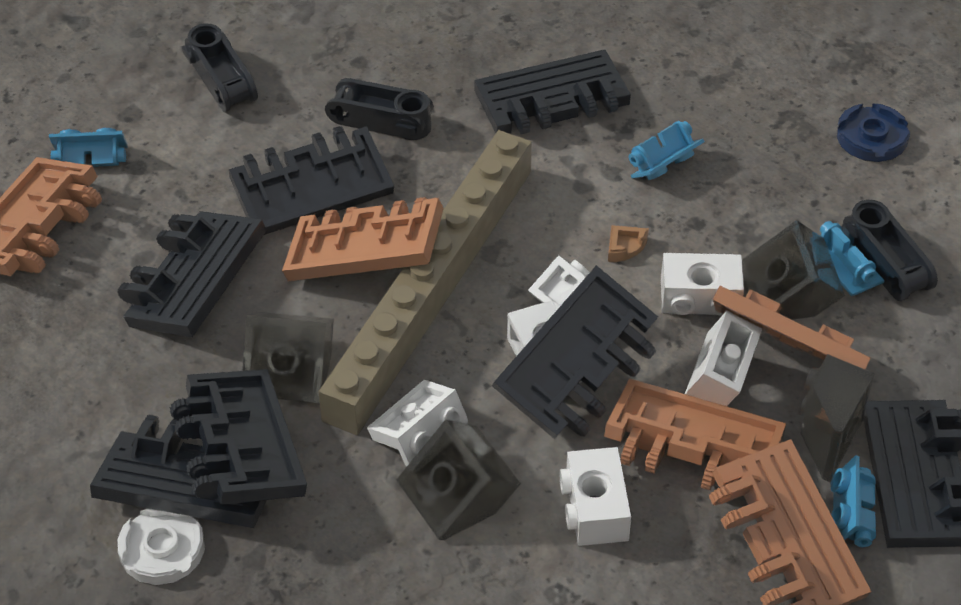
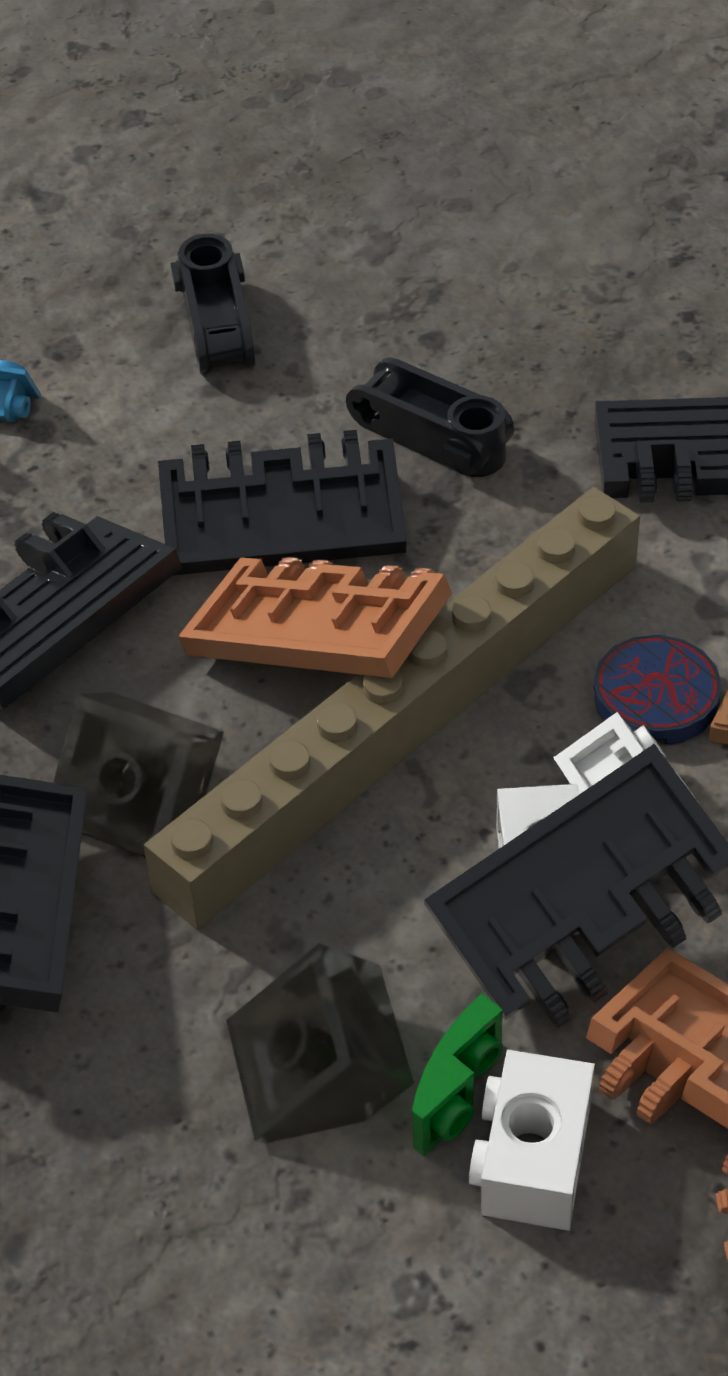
camera: 20 degrees right, 0 degrees up
(416, 418) = (288, 923): white bracket -> none
(540, 474) = (446, 1088): none -> green slope
(571, 235) = (658, 685): none -> tile

